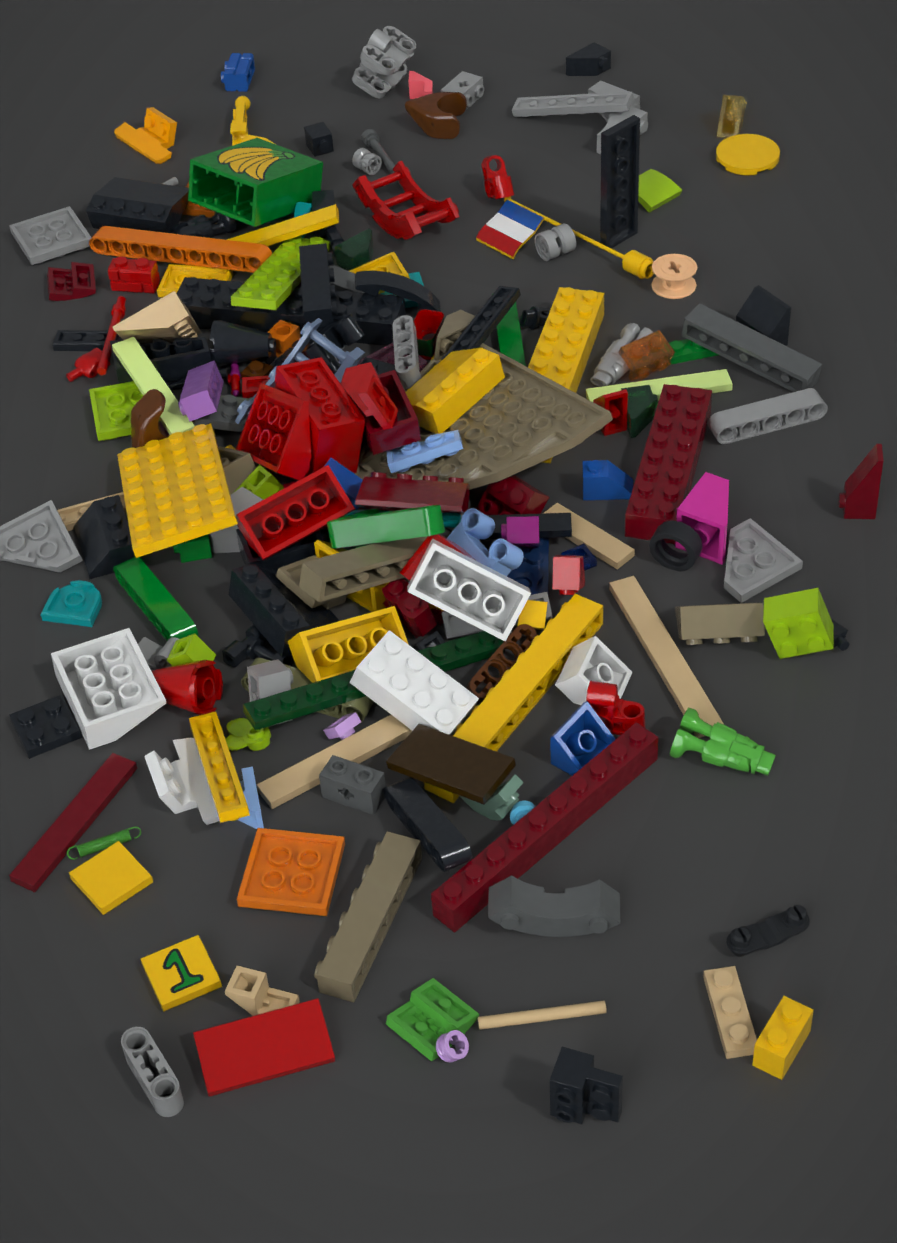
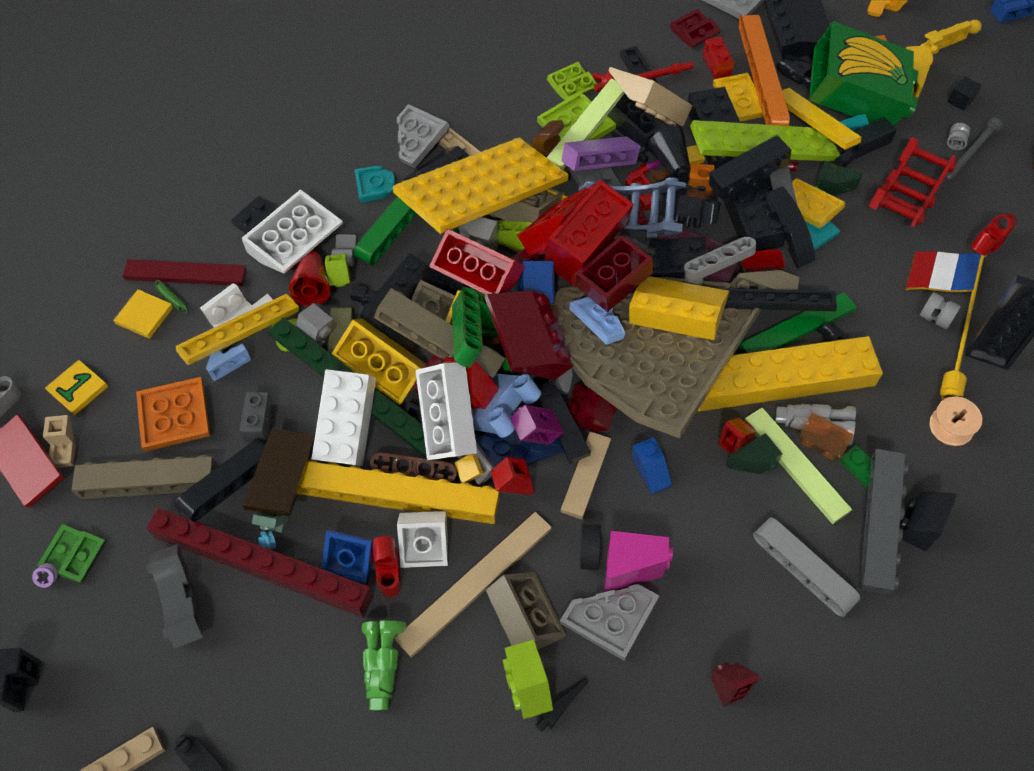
camera: 65 degrees right, 15 degrees up
(64, 397) = (571, 81): none -> lime slope
(343, 726) = (310, 388): lavender plate -> none
(355, 748) = (280, 393): tan tile -> none
(369, 394) = (597, 252): red piece -> none
(542, 1015) = (91, 625): tan bar -> none
(581, 550) = (557, 479): clear blue tile -> none
(668, 459) = (703, 503): dark red brick -> none

